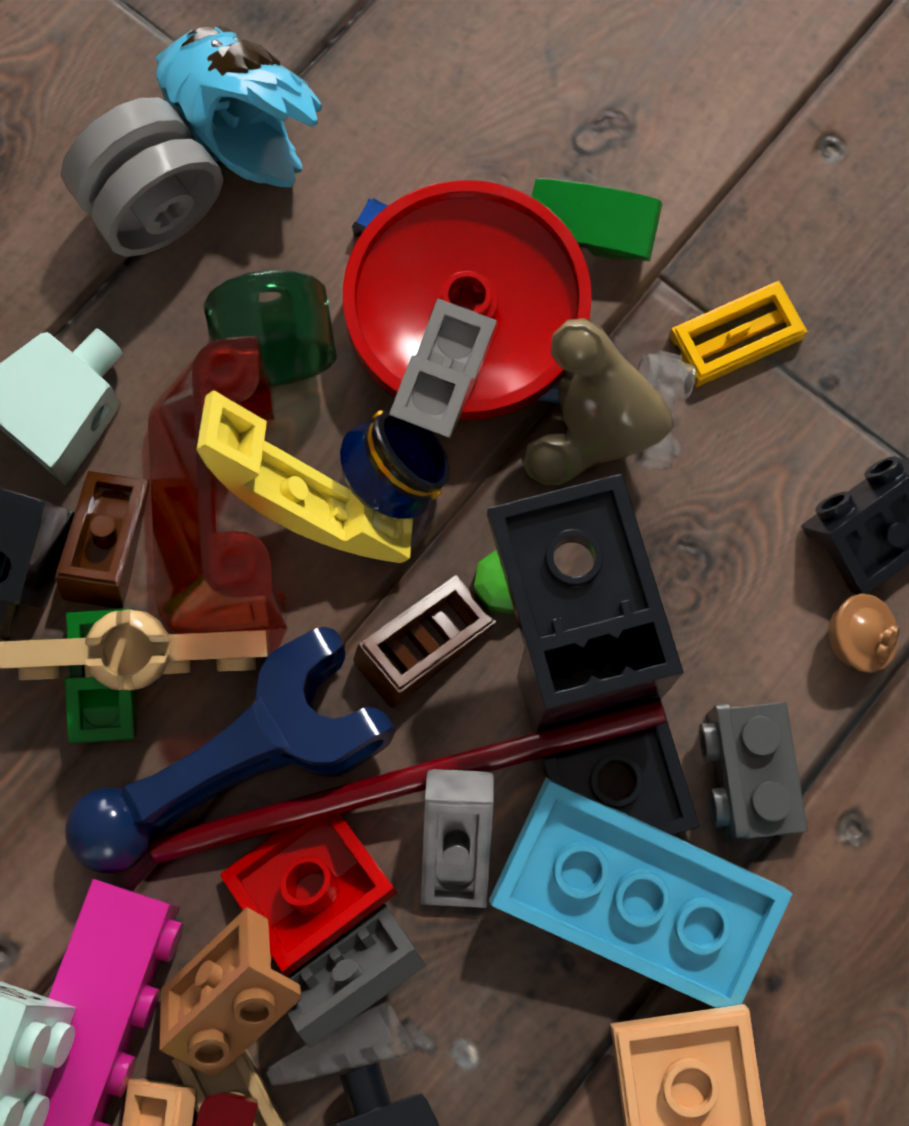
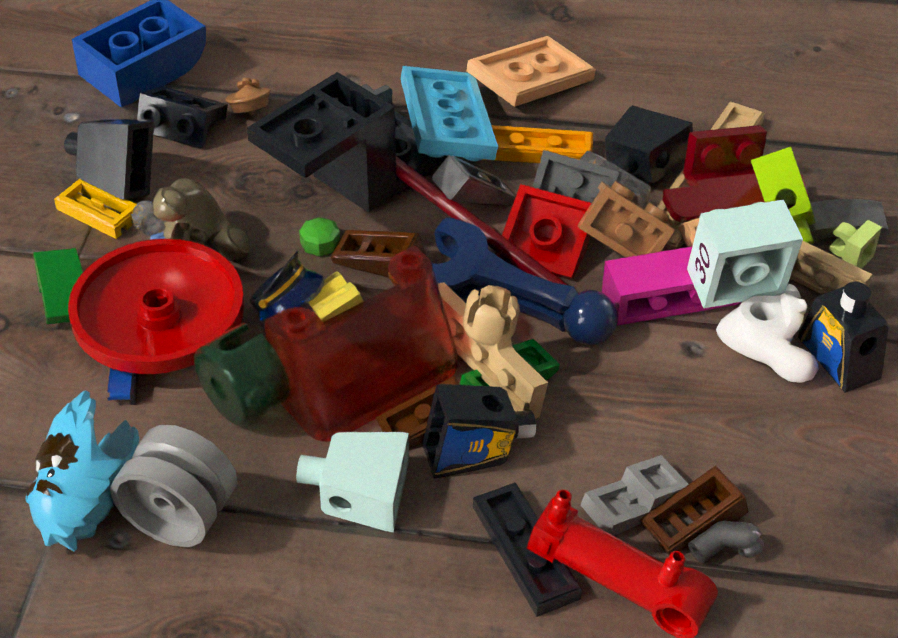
camera: 120 degrees left, 30 degrees down
(444, 368) = (227, 278): light grey slope -> none
(517, 1020) = (527, 144): none -> light orange tile
(801, 368) = (114, 155): none -> torso

